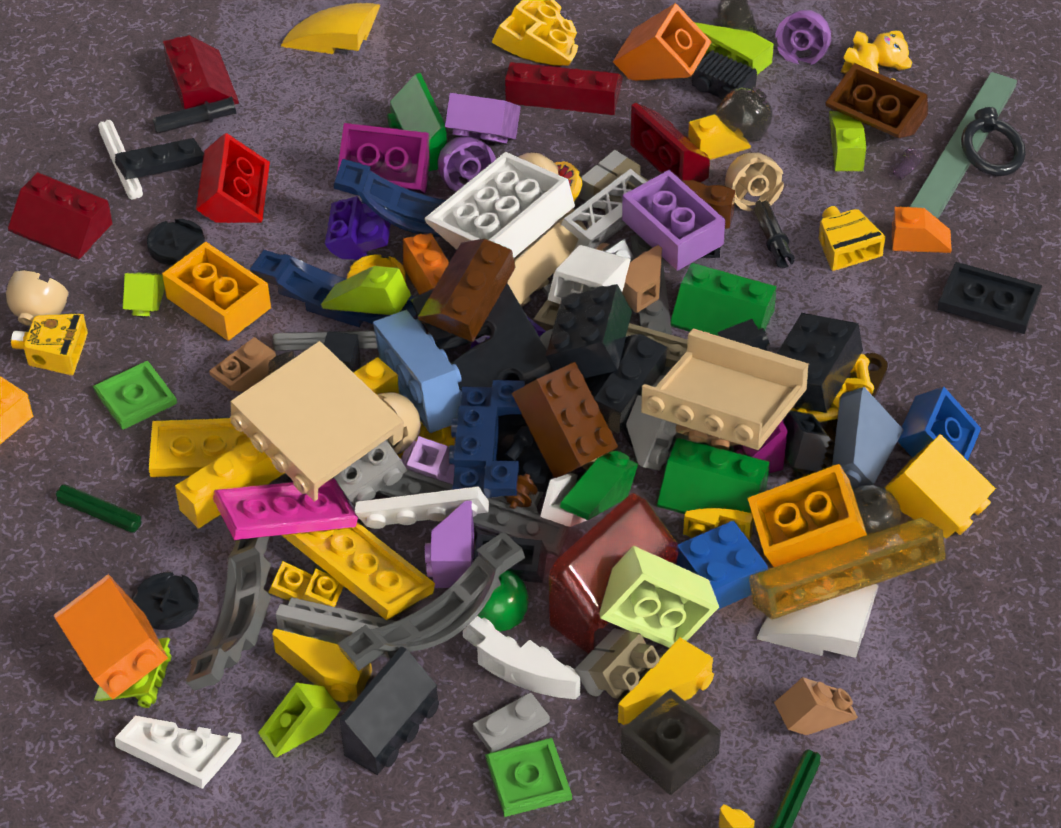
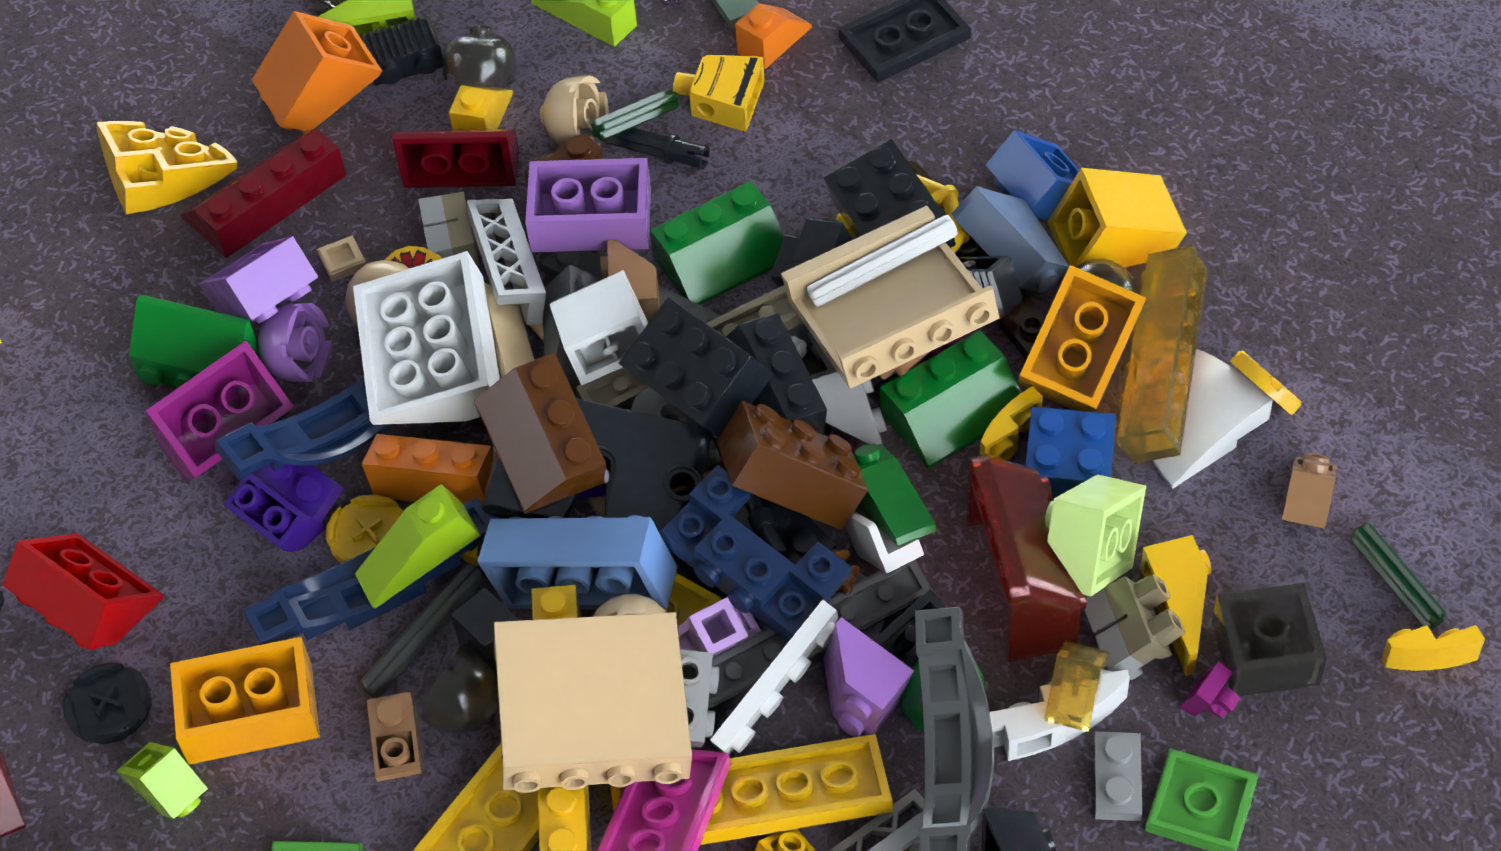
camera: 50 degrees left, 5 degrees up
(542, 651) = (1075, 685): none -> clear yellow slope
(552, 148) = (341, 258): none -> tan tile
(608, 733) = (1211, 693): none -> magenta tile
(751, 371) = (882, 261): none -> white axle
(781, 207) = (634, 114): none -> axle
(872, 634) = (1266, 382): none -> yellow tile

